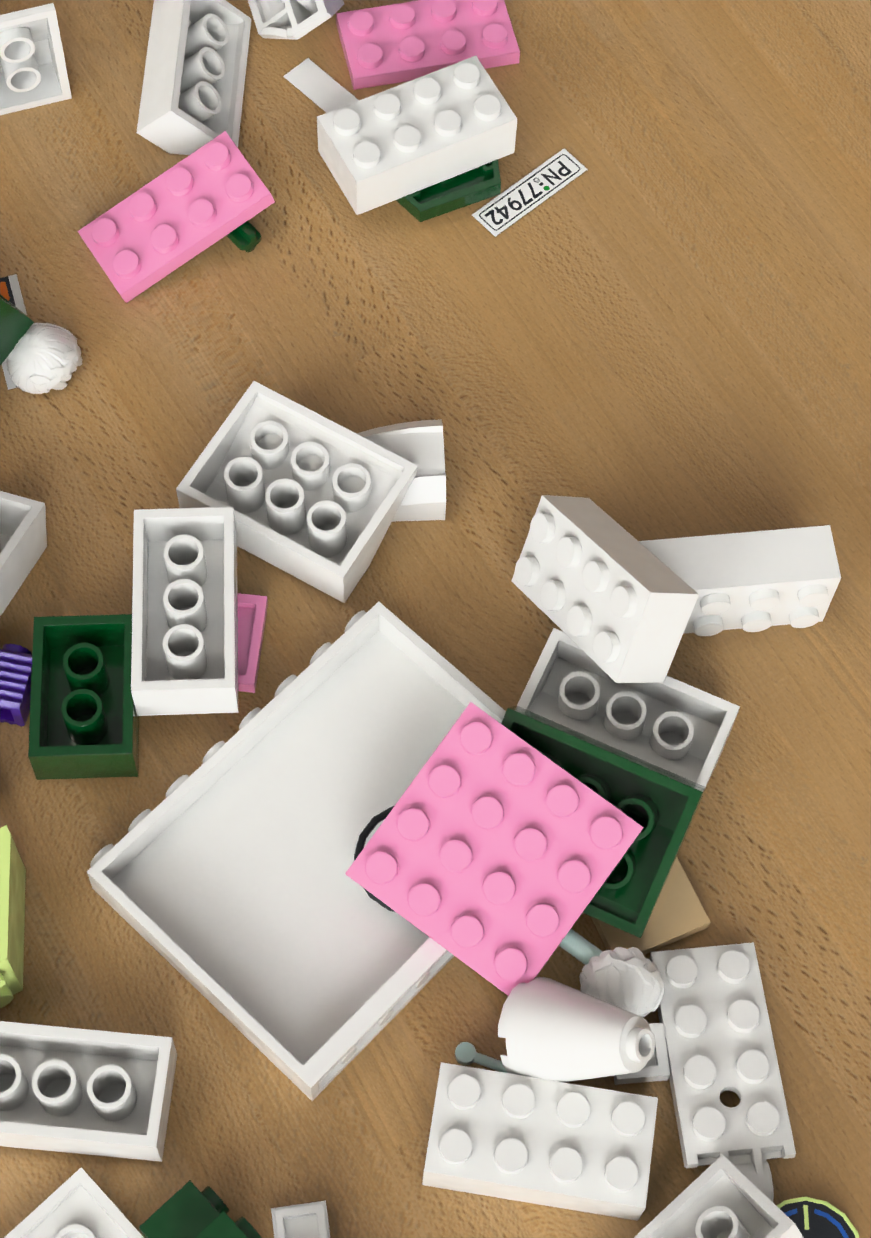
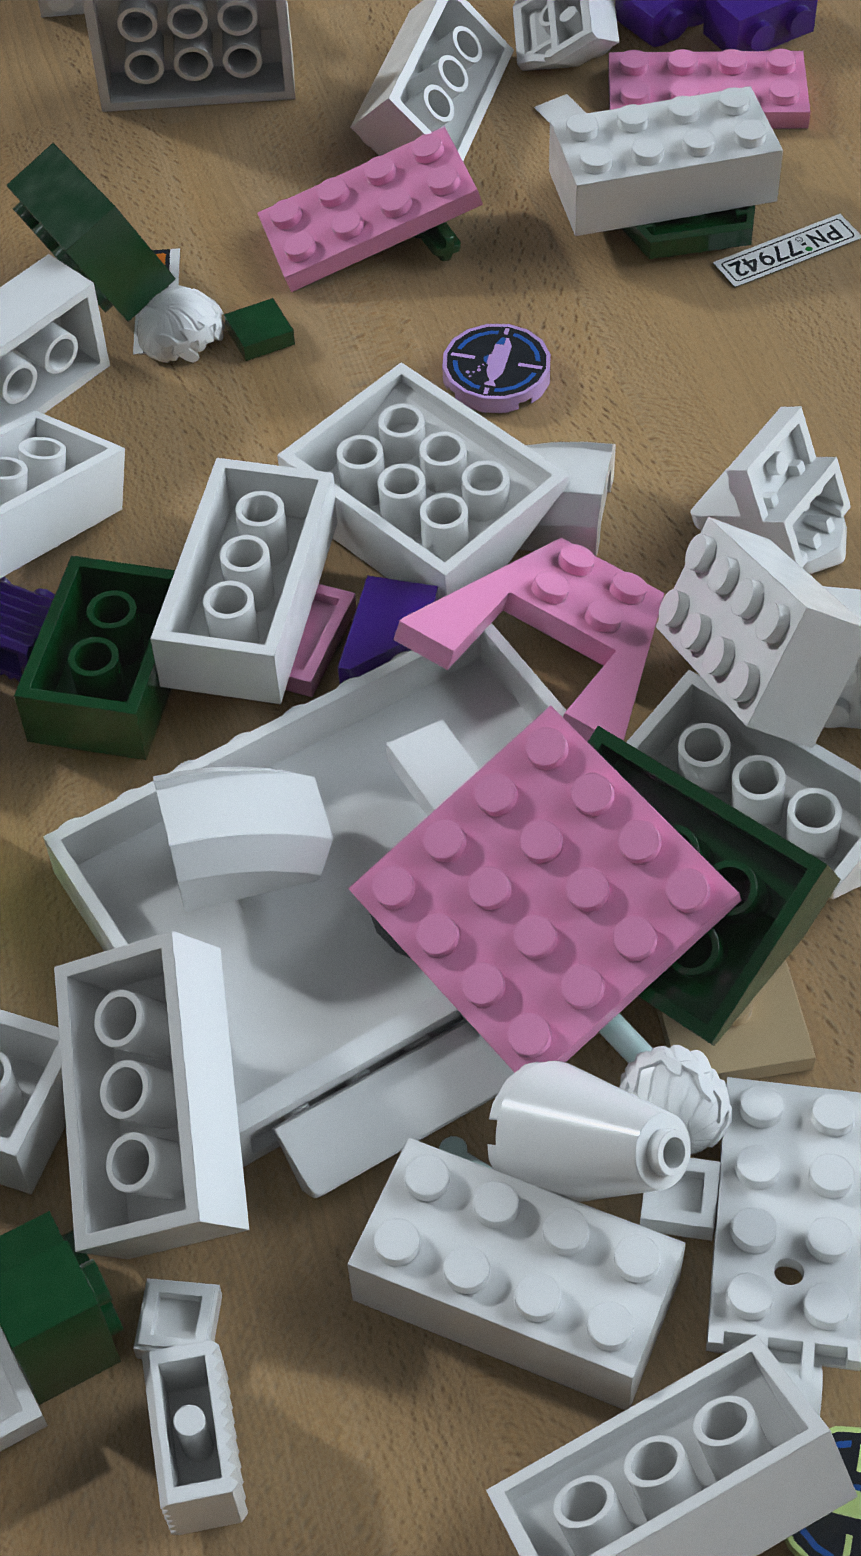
camera: 20 degrees right, 10 degrees down
(111, 349) = (259, 329): none -> dark green tile
(243, 1077) = (149, 1098): none -> white brick
(245, 835) = (242, 831): none -> white slope
(305, 621) = (376, 622): none -> dark purple slope
(321, 353) = (496, 367): none -> tile
(382, 753) = (431, 764): none -> white tile
(416, 1035) = (383, 1109): none -> white slope
(451, 574) = (569, 598): none -> bright pink wing
(580, 448) = (783, 494): none -> white piece

